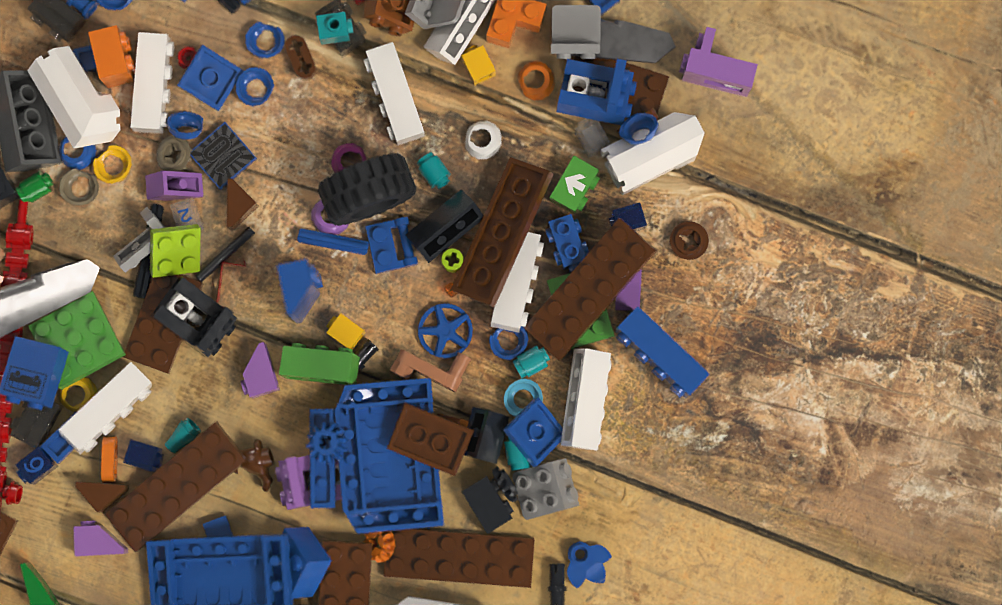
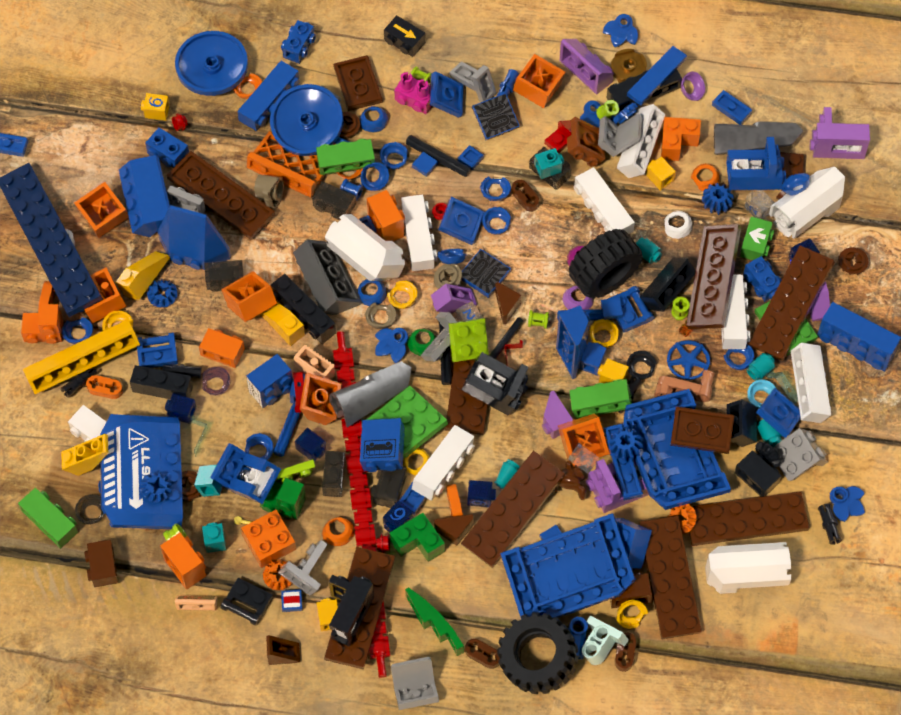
camera: 15 degrees left, 20 degrees down
(35, 187) = (347, 320): green brick -> none
(55, 492) = (417, 533): none -> green brick
(81, 230) = (389, 345): none -> blue plate
(96, 540) = (460, 563): medium lavender slope -> none
(109, 232) = (418, 348): none -> green piece
(272, 236) = (538, 319): none -> lime bush
(272, 448) = (583, 458): none -> clear brick
(282, 417) = (585, 431): none -> orange brick
(326, 303) = (592, 358): none -> blue brick
(347, 259) = (606, 325): none -> yellow piece
(365, 244) = (611, 308): none -> blue tile
(374, 317) = (641, 356): none -> black piece
(533, 120) = (724, 198): none -> blue gear
(553, 390) = (783, 381): none -> clear light blue piece
(576, 31) = (728, 131): light grey bracket -> none

